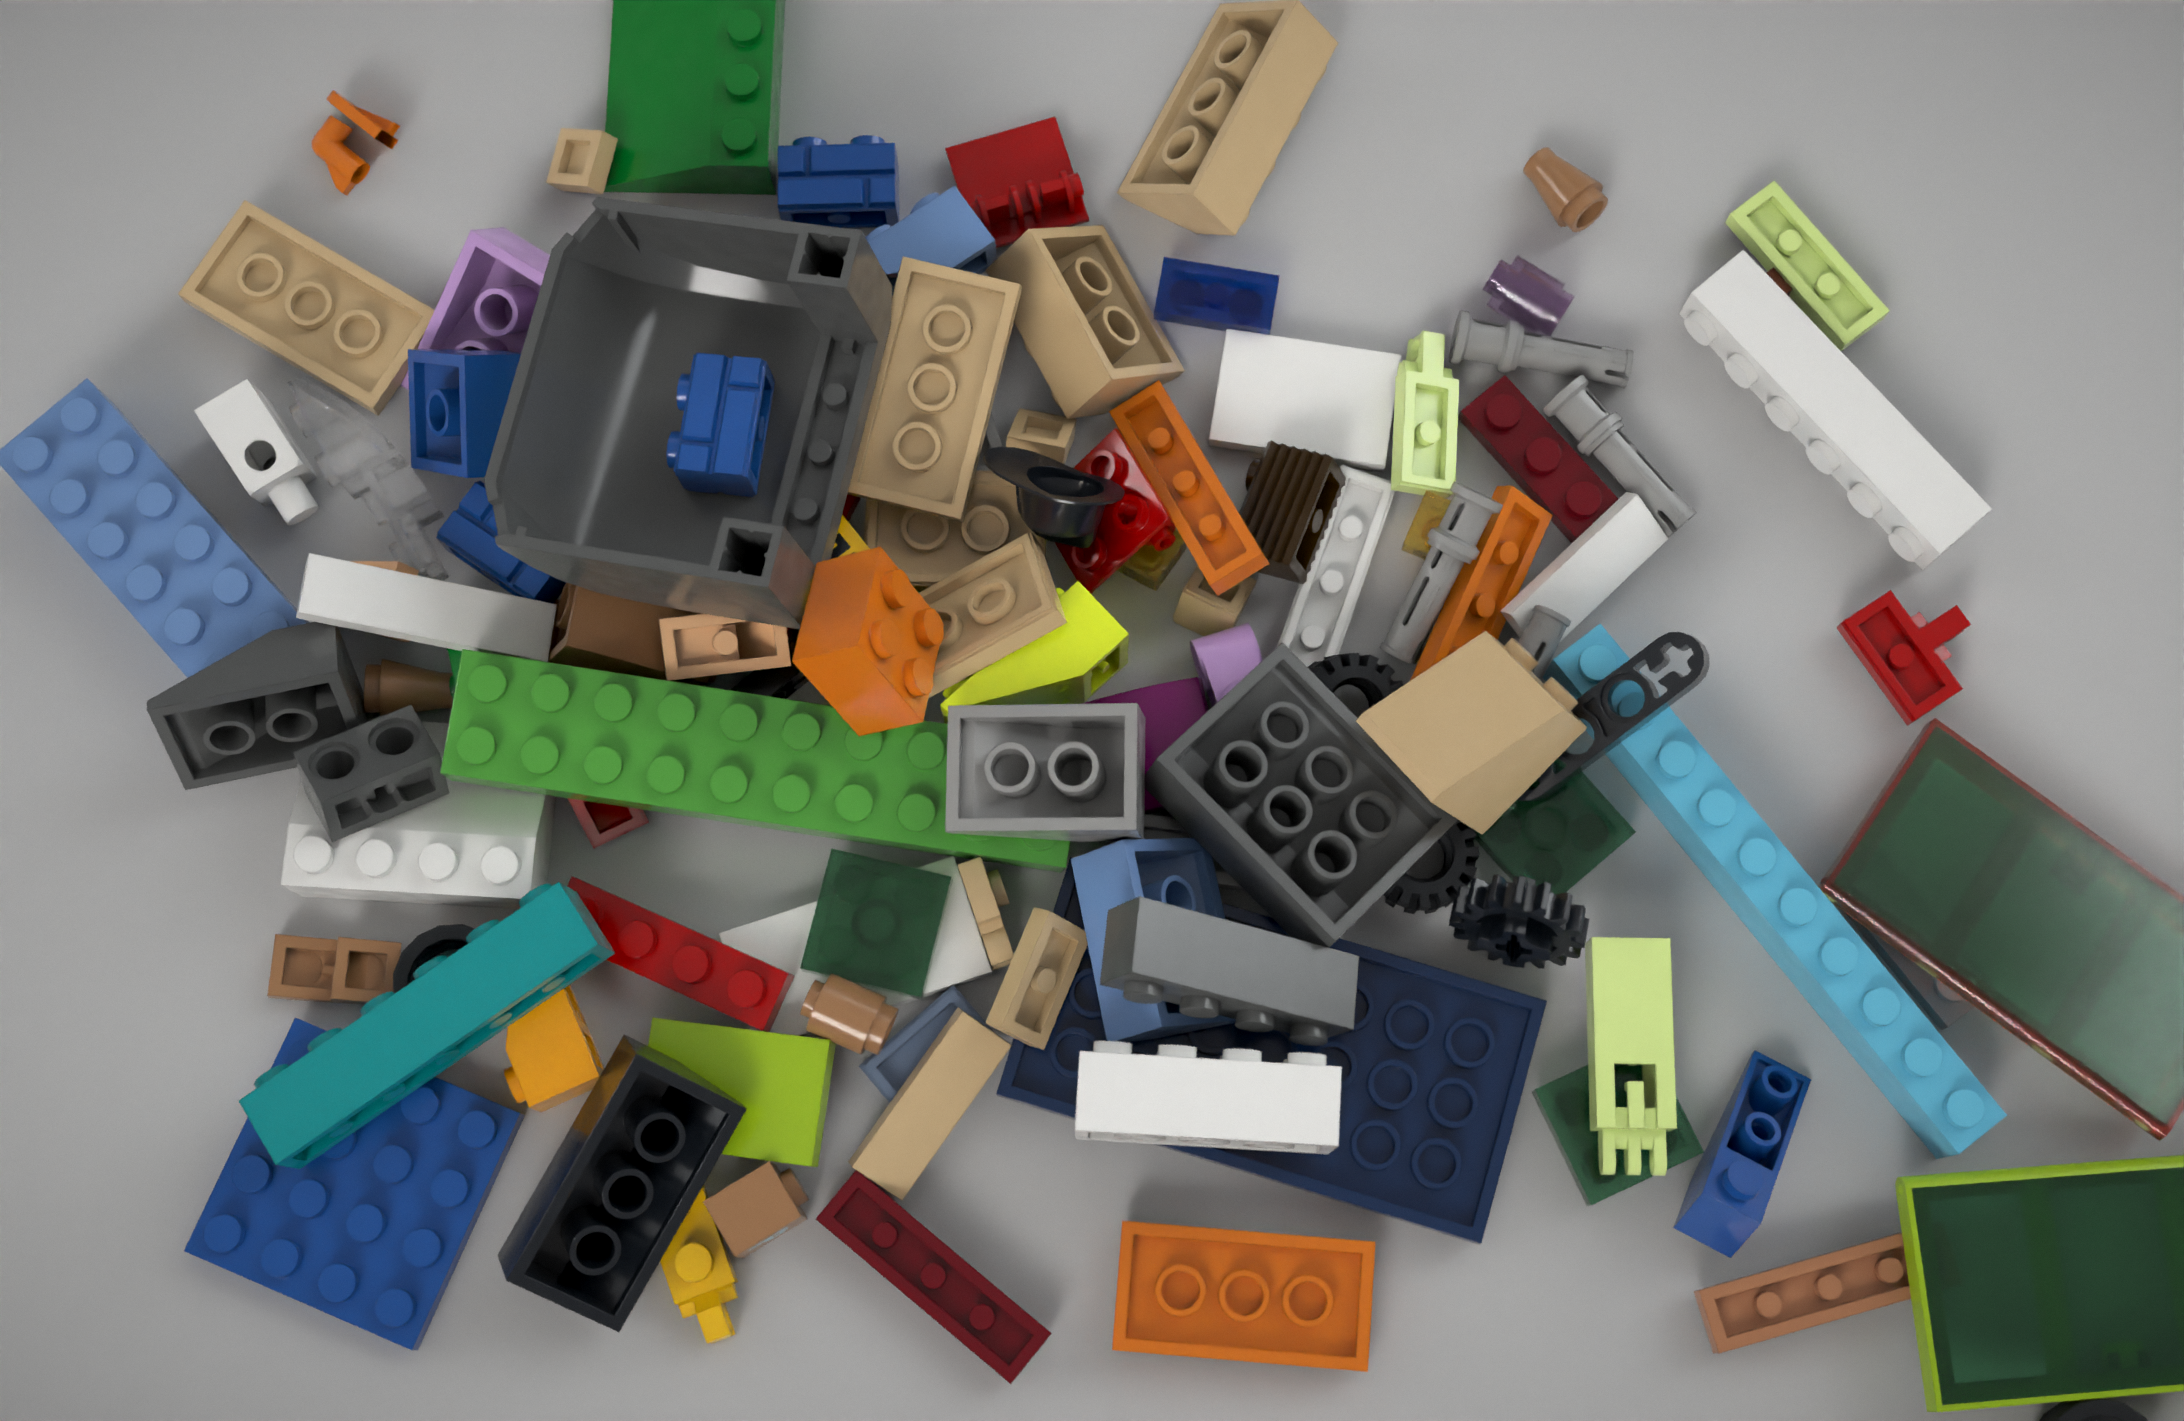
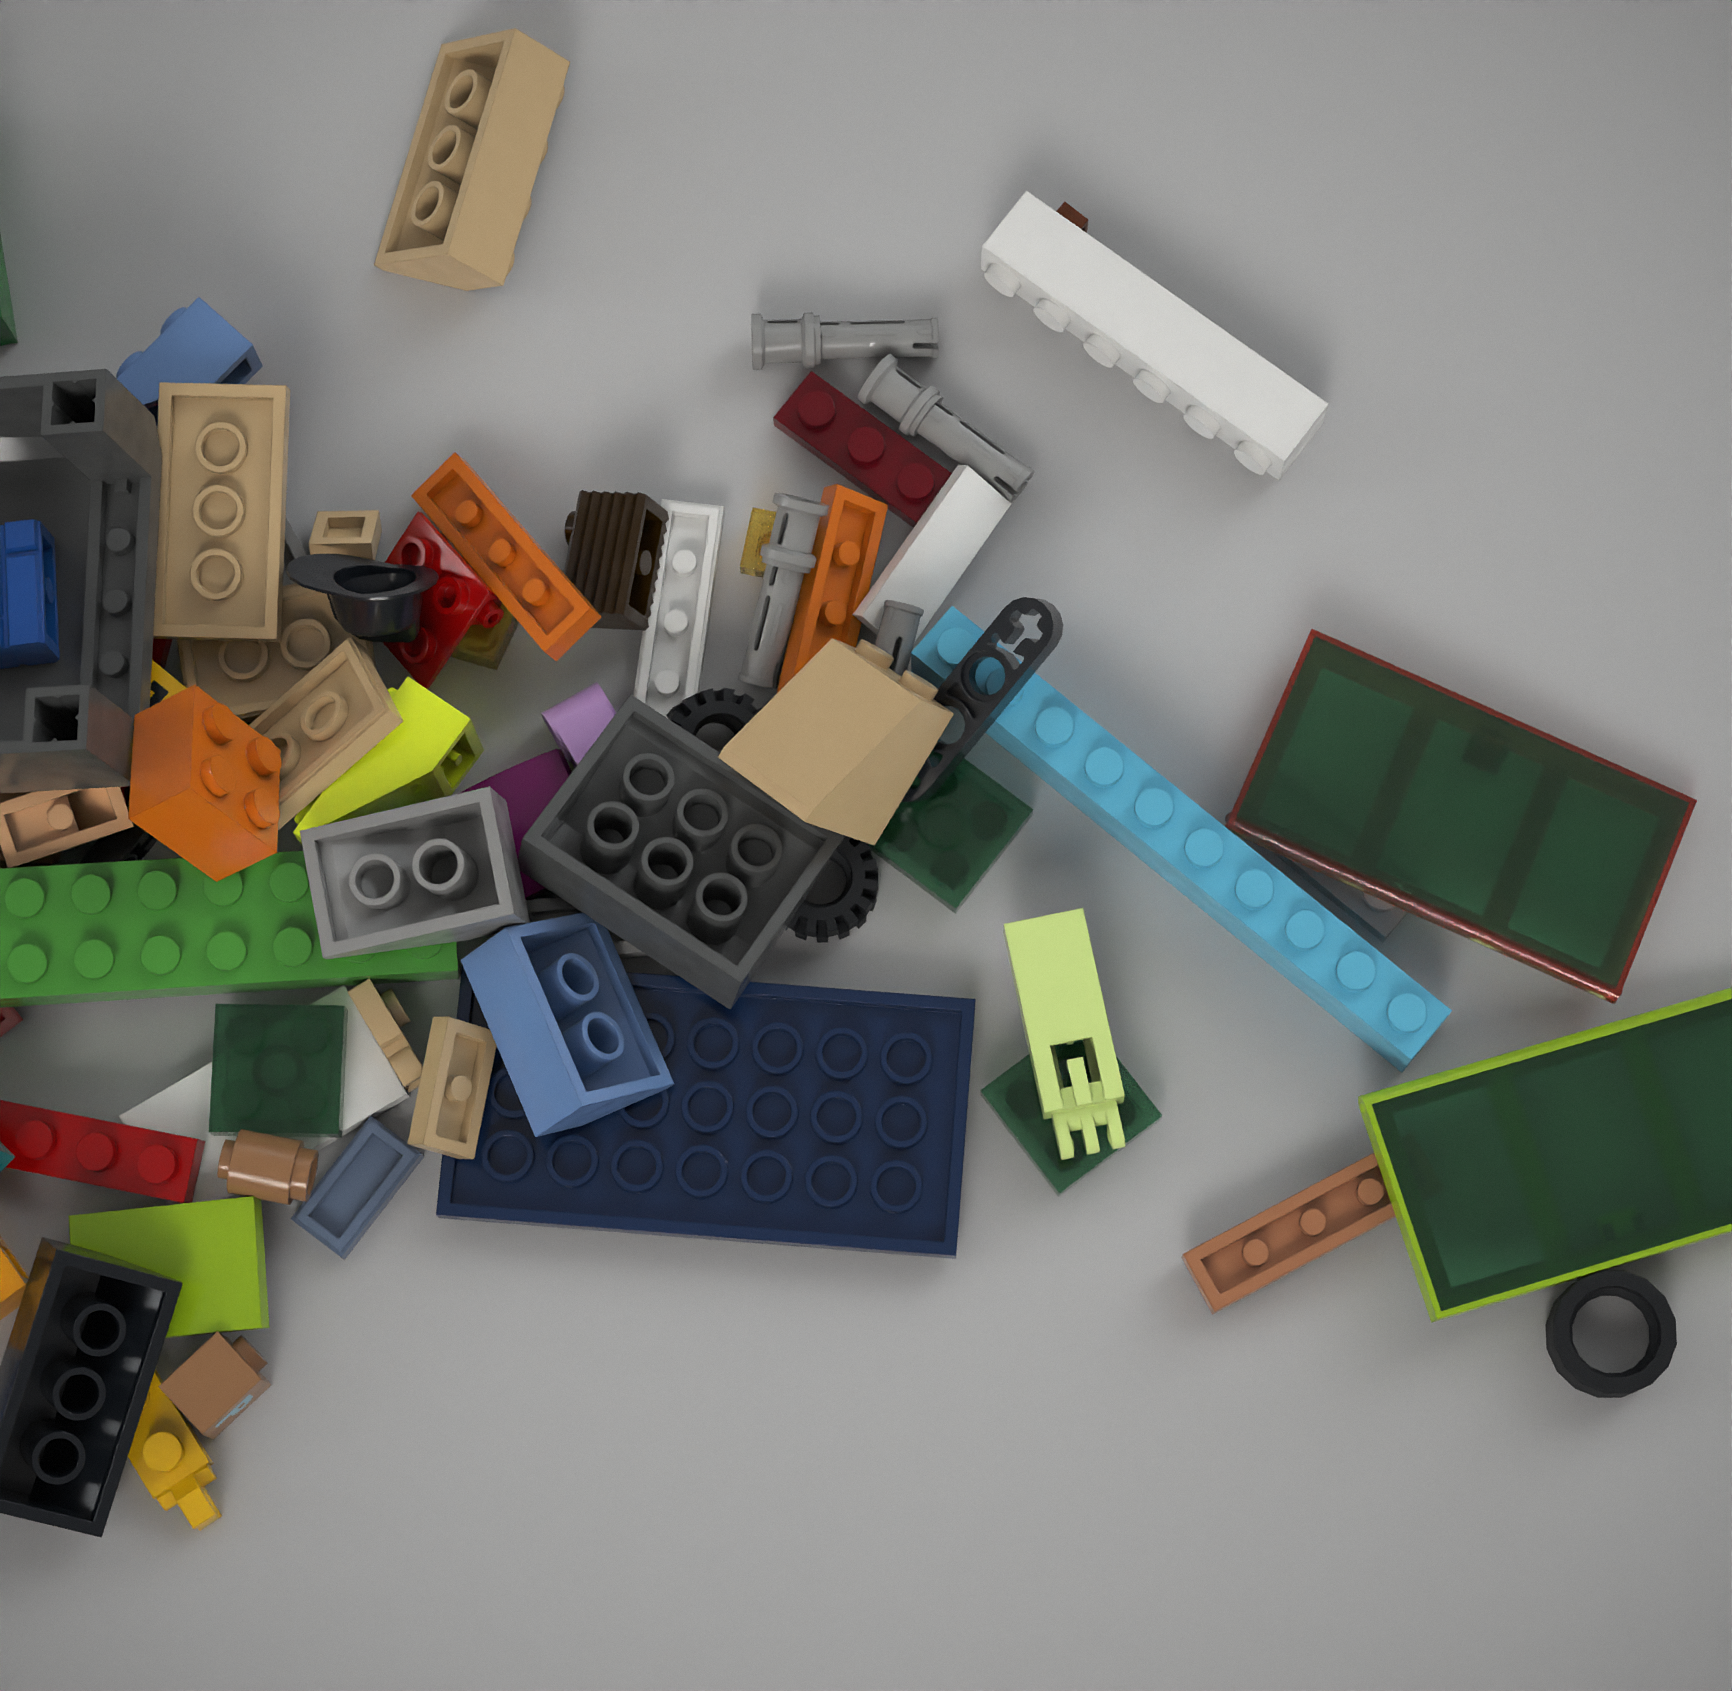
camera: 10 degrees left, 0 degrees up
(839, 182) = (80, 318): blue brick -> none
(929, 1104) = (370, 1240): tan tile -> none
(933, 1276) = (410, 1411): dark red plate -> none
(1019, 180) = (269, 277): red hinge -> none
(1084, 319) = (365, 404): tan slope -> none
(1207, 613) = (555, 681): tan slope -> none
(1208, 1101) = (642, 1171): white brick -> none
(1215, 296) = (498, 353): clear blue plate -> none
(1229, 971) = (640, 1035): brick -> none
(1244, 1296) = (728, 1361): orange plate -> none
(1305, 397) = (611, 438): white tile -> none
(1425, 419) = (737, 434): yellowish green hinge -> none
(1519, 921) = (928, 924): black gear -> none
(1527, 295) = (818, 283): clear purple brick -> none
(1567, 191) = (838, 166): medium nougat cone -> none
(1743, 1156) = (1204, 1110): blue slope -> none
(1819, 276) = (1100, 190): yellowish green plate -> none
(1905, 653) = (1274, 569): red hinge -> none

